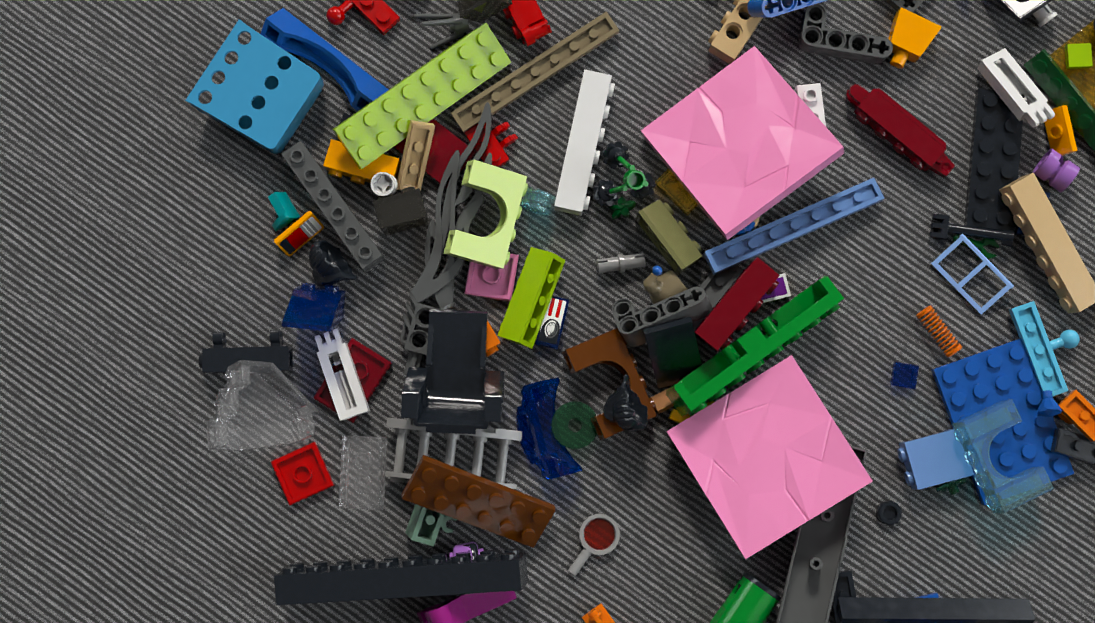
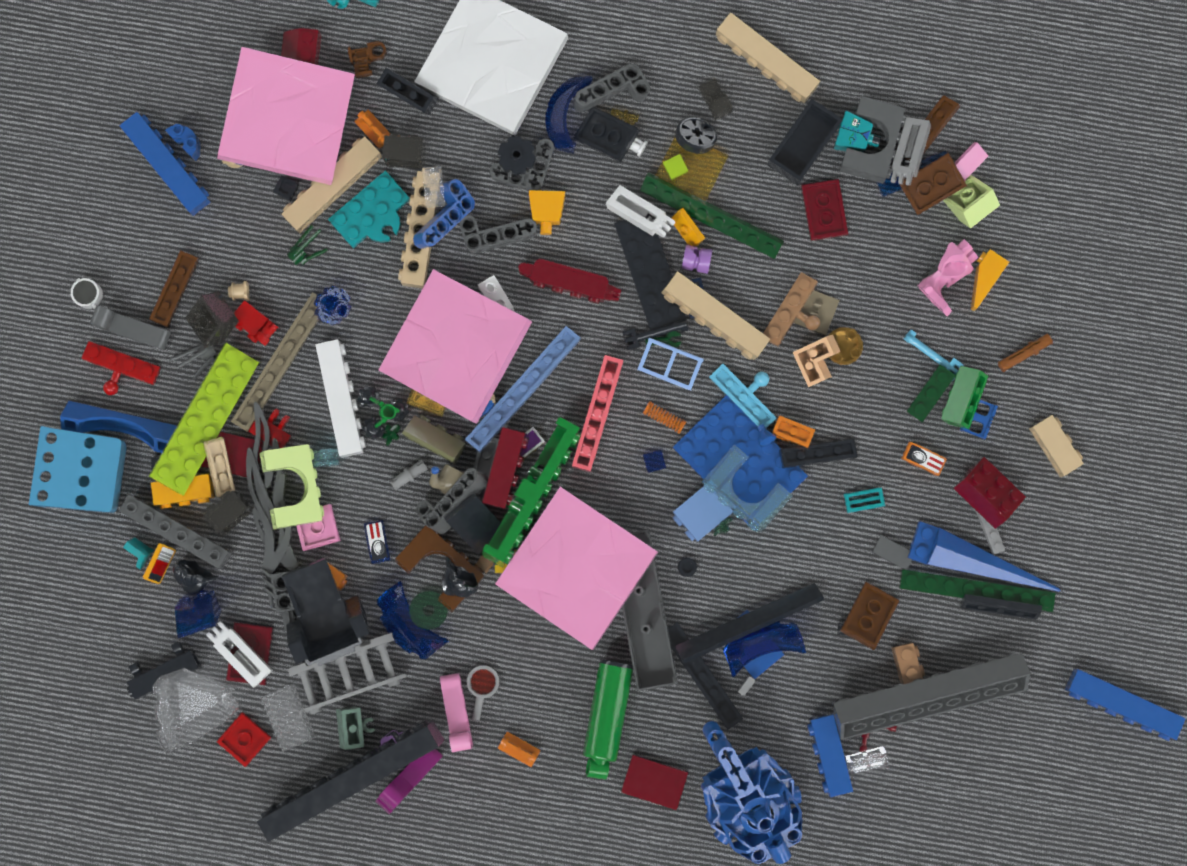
camera: 25 degrees left, 0 degrees up
(381, 181) = (202, 498): white wheel -> none
(478, 501) = (381, 699): reddish brown plate -> none
(531, 297) = (353, 531): lime brick -> none
(554, 556) = (456, 712): none -> bright pink beam
(622, 35) = (332, 305): none -> clear blue plant
(867, 292) = (597, 413): none -> coral brick

